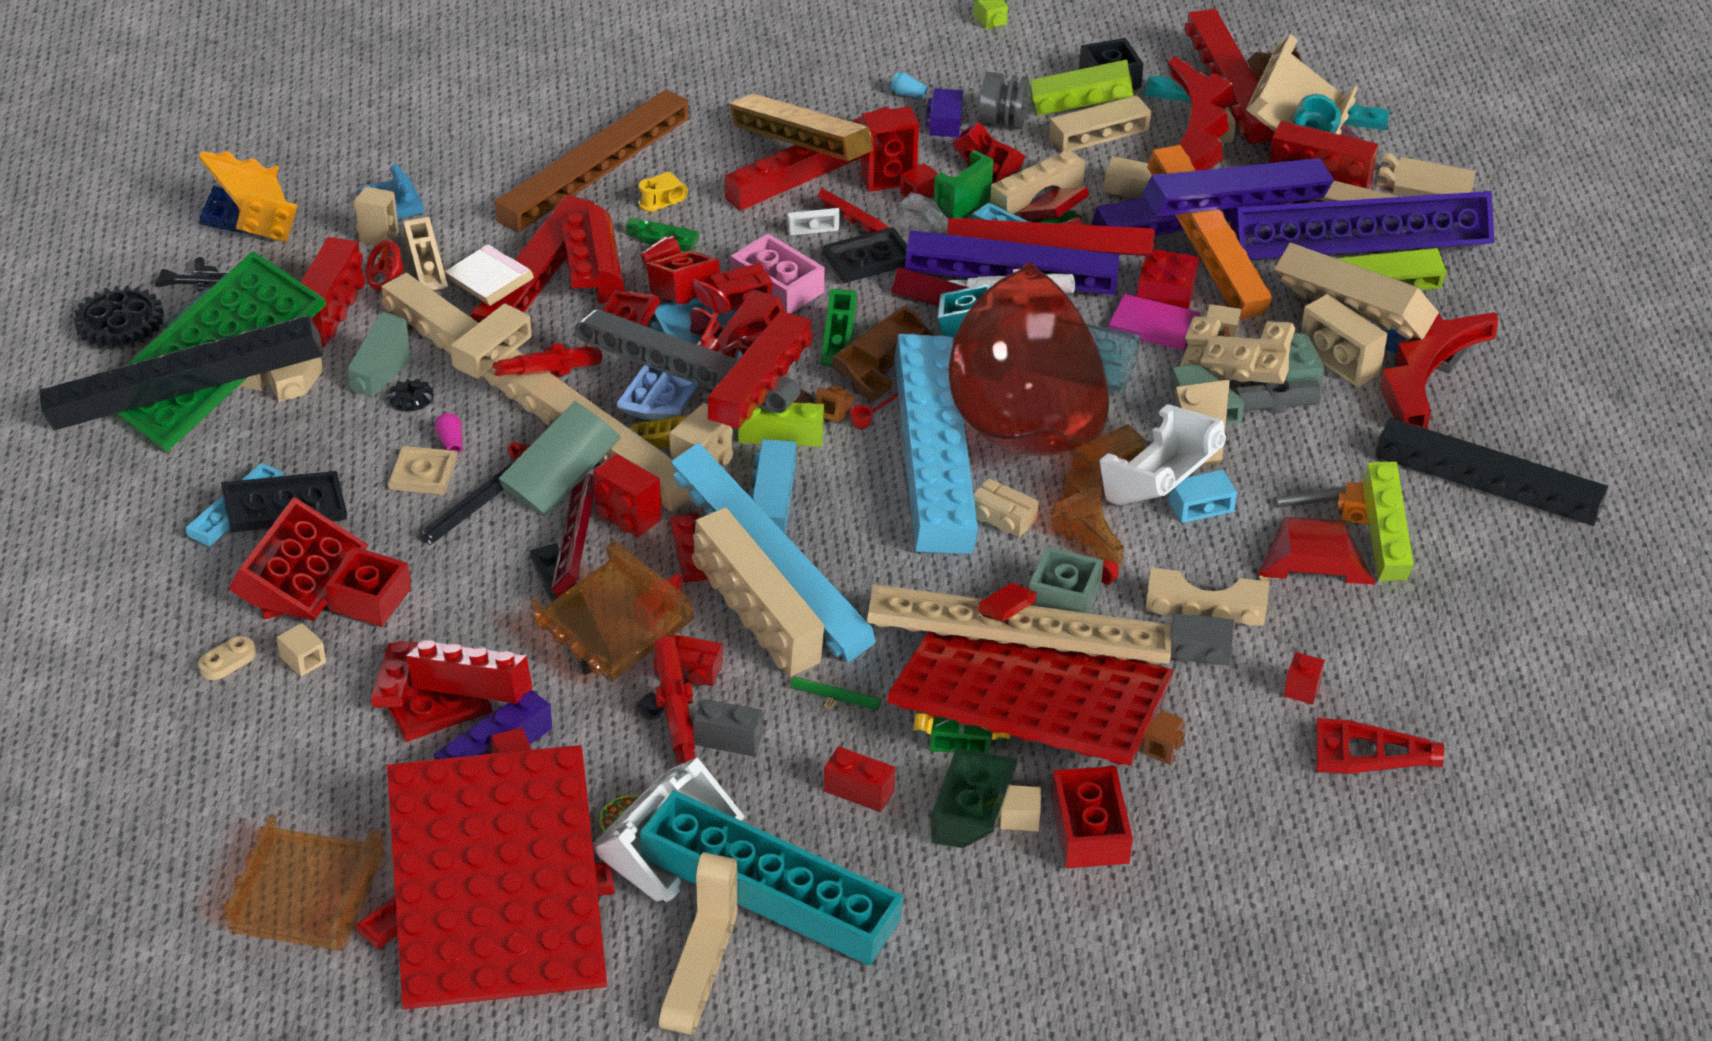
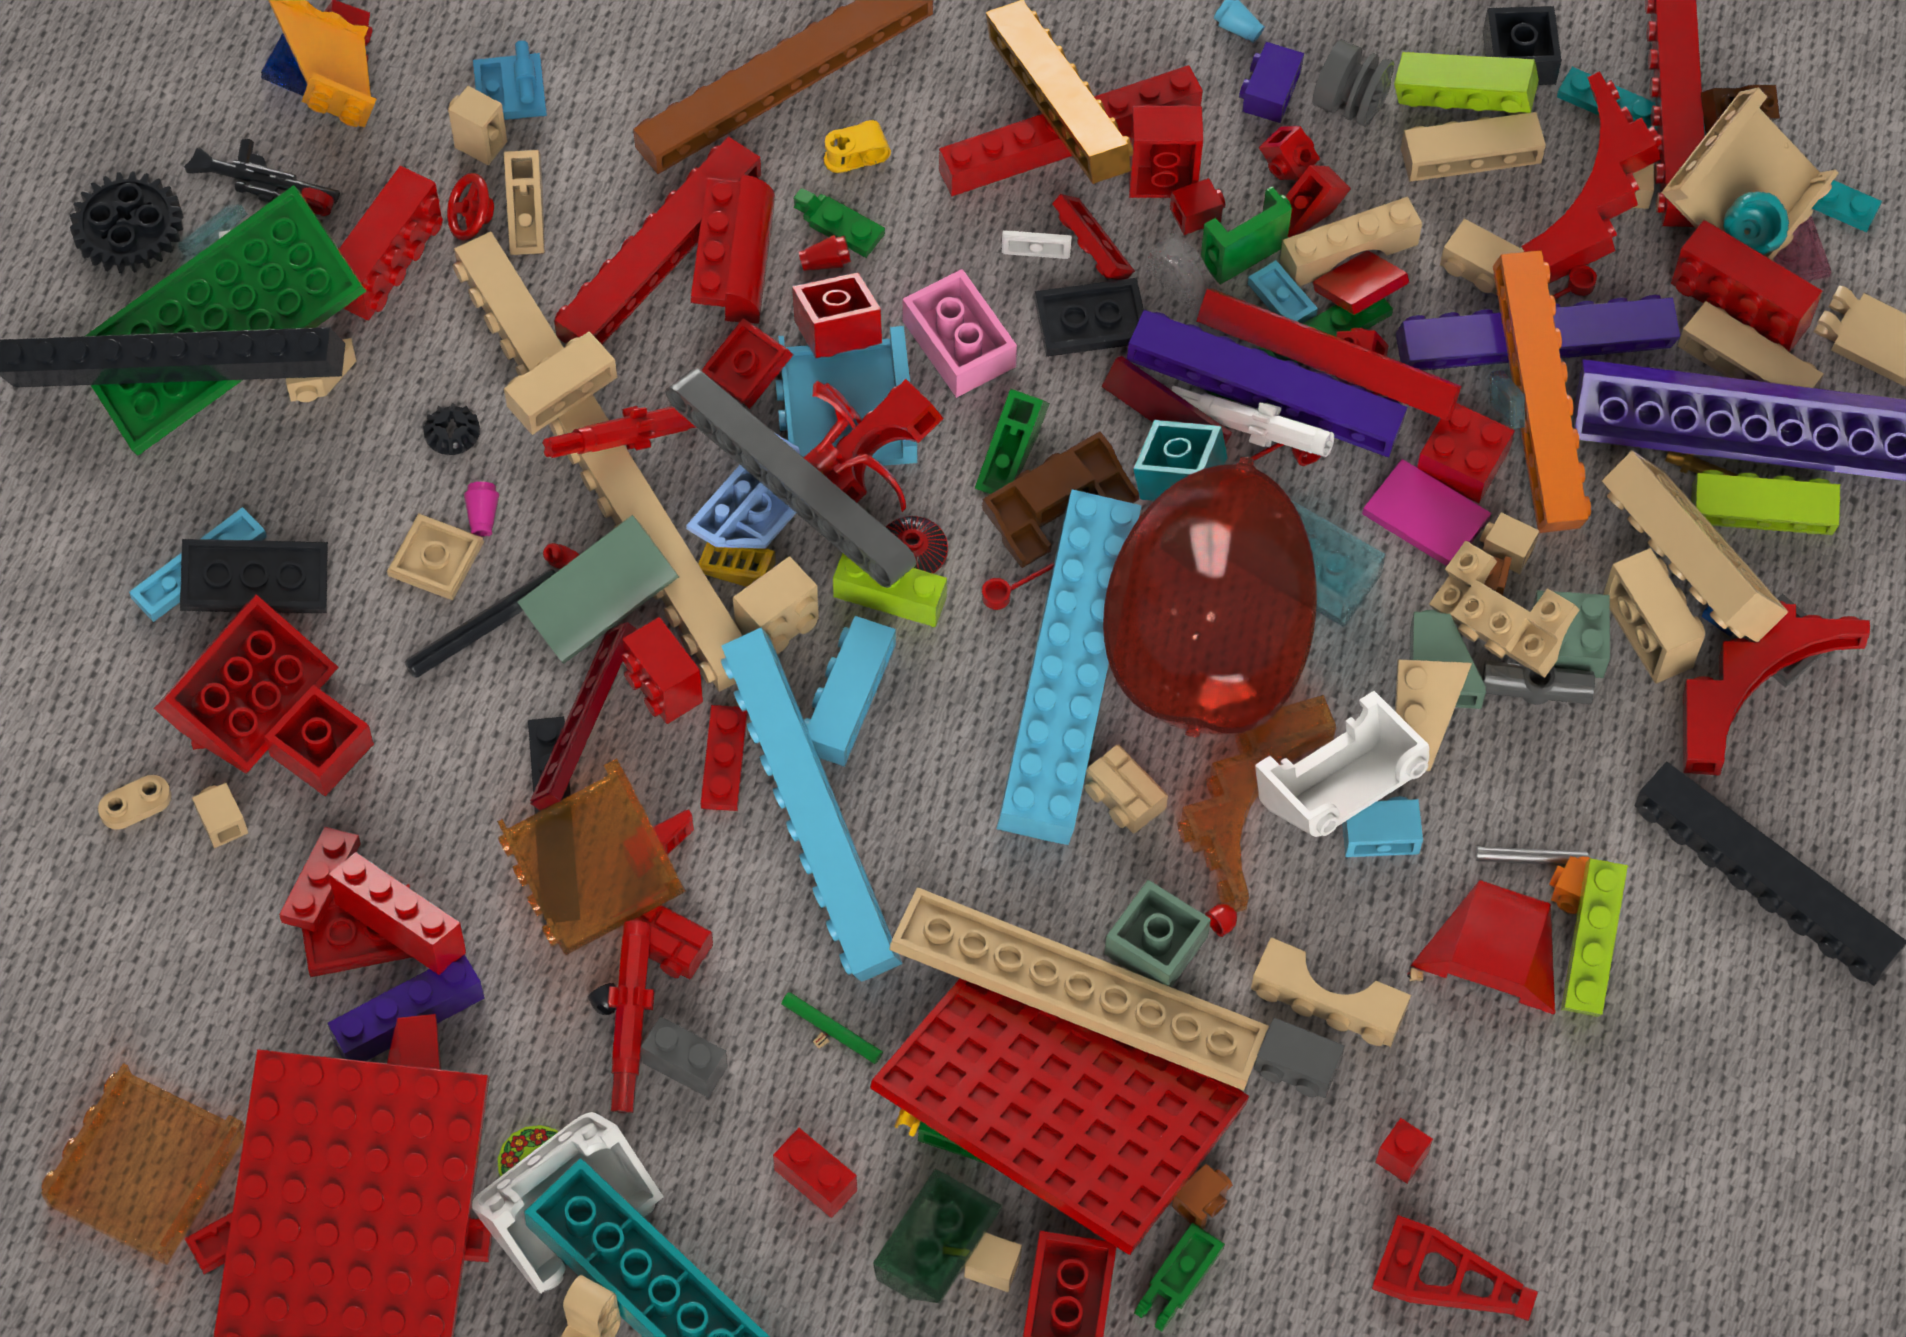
camera: 15 degrees right, 20 degrees up
(380, 355) = (423, 367): sand green slope -> none
(489, 274) = (591, 259): tile -> none
(740, 282) = (897, 357): red brick -> none
(757, 592) = (772, 868): tan brick -> none
(759, 369) = (866, 532): red brick -> none
(836, 402) = (971, 562): dark orange brick -> none
(1007, 602) = (1071, 955): red tile -> none
(1168, 789) = (1181, 1273): none -> green hinge
(1187, 242) = (1507, 399): none -> clear light blue tile
(1237, 187) = (1596, 337): dark purple brick -> none

